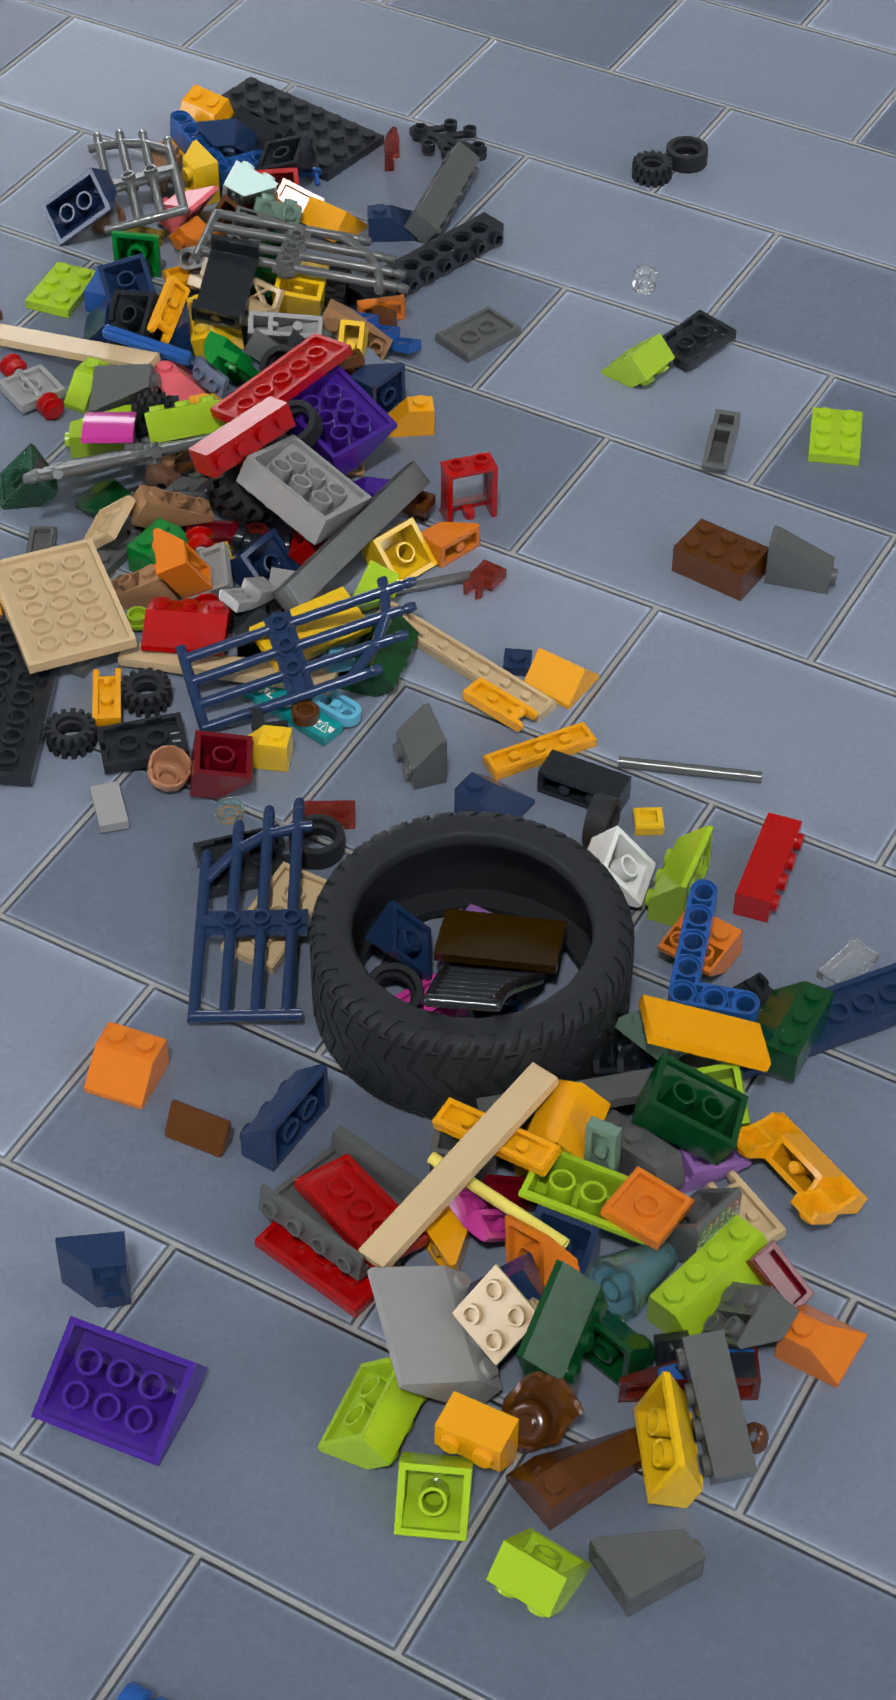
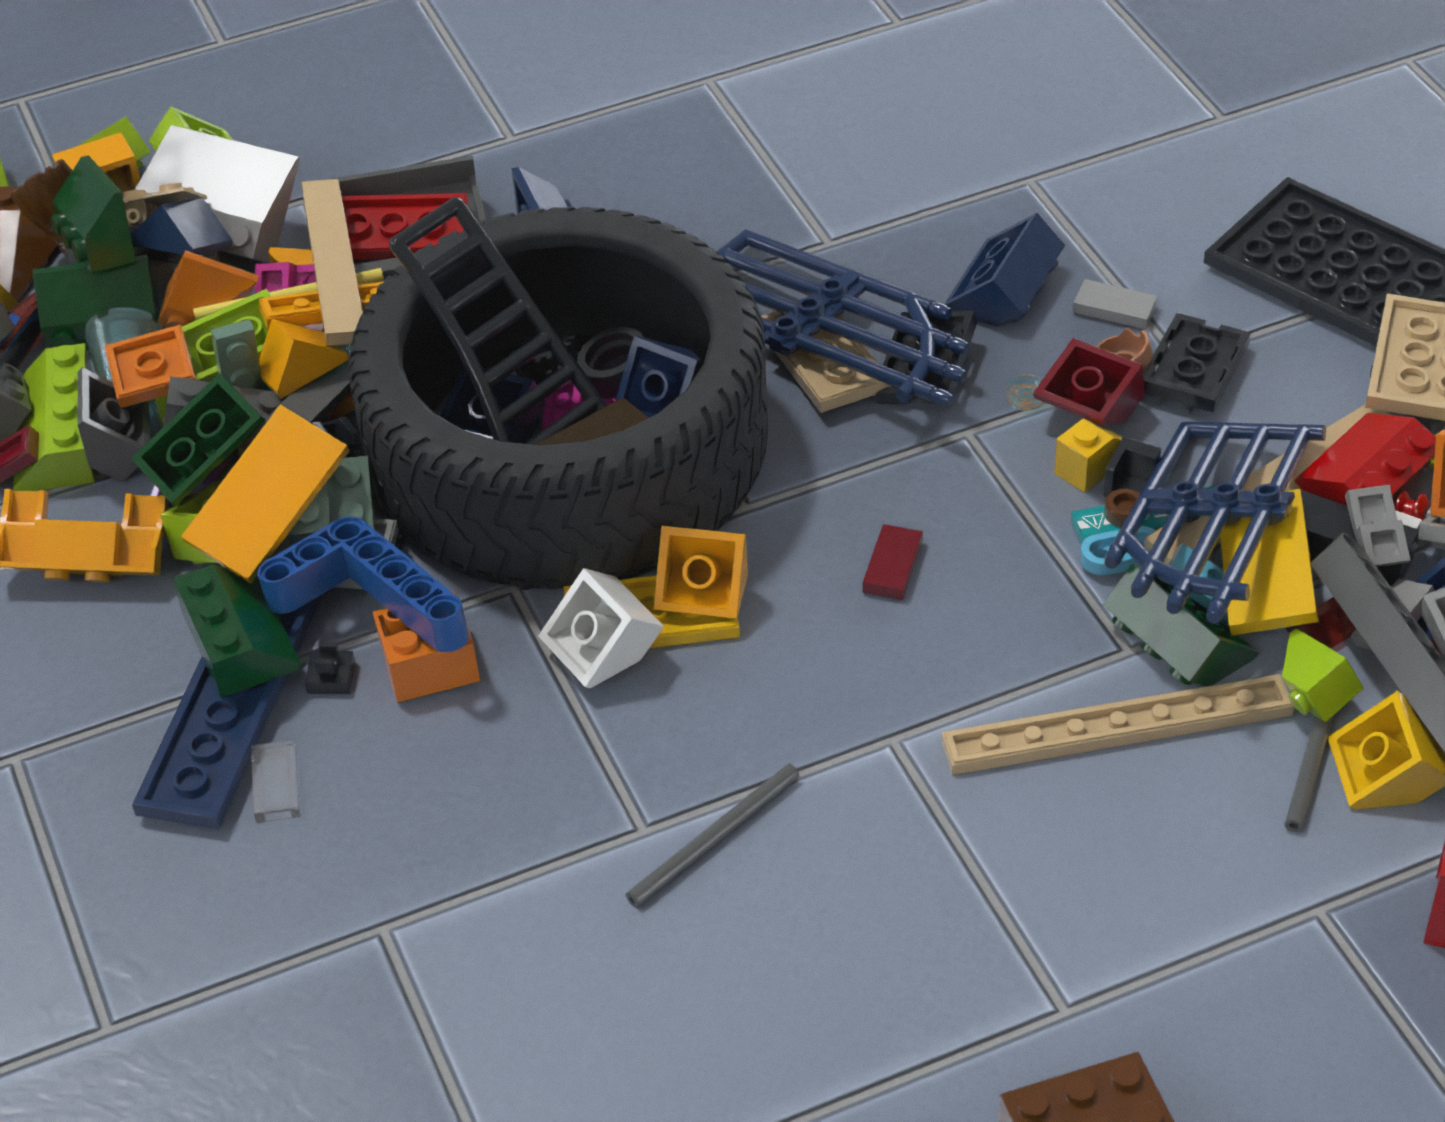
camera: 130 degrees right, 0 degrees up
(71, 744) = (1264, 300): black tyre -> none
(96, 1267) = (511, 54): dark blue slope -> none
(107, 698) = (1305, 366): light orange hinge -> none
(118, 1391) = (401, 45): dark purple slope -> none
(126, 1065) = (733, 175): orange slope -> none
(128, 865) = (1008, 272): none -> dark blue slope
(146, 703) = (1286, 385): black tyre -> none
(198, 1128) = (610, 187): reddish brown slope -> none
(326, 856) = (903, 448): black tyre -> none
(340, 810) = (946, 463): clear red plate -> none
(422, 749) = (958, 575): dark grey slope -> none
(427, 797) = (892, 562): none -> dark red tile
(451, 540) = (1377, 822): orange slope -> none
(484, 576) = (1266, 830): clear red plate -> none
(484, 793) = (831, 604): dark blue slope -> none
(498, 703) = (995, 701): light orange hinge -> none
(517, 661) = (1067, 775): dark blue plate -> none
(536, 750) = (882, 708): light orange tile -> none
(559, 678) = (999, 804): light orange slope -> none
(580, 780) = (776, 699): black brick -> none
(601, 816) = (686, 659): black tyre -> none
(648, 821) = (669, 739): yellow tile -> none
(665, 1346) = (31, 349): black plate -> none
(683, 866) = (535, 687): lime slope -> none
(754, 1210) = (93, 490): tan hinge -> none
(768, 867) = (477, 792): red brick -> none

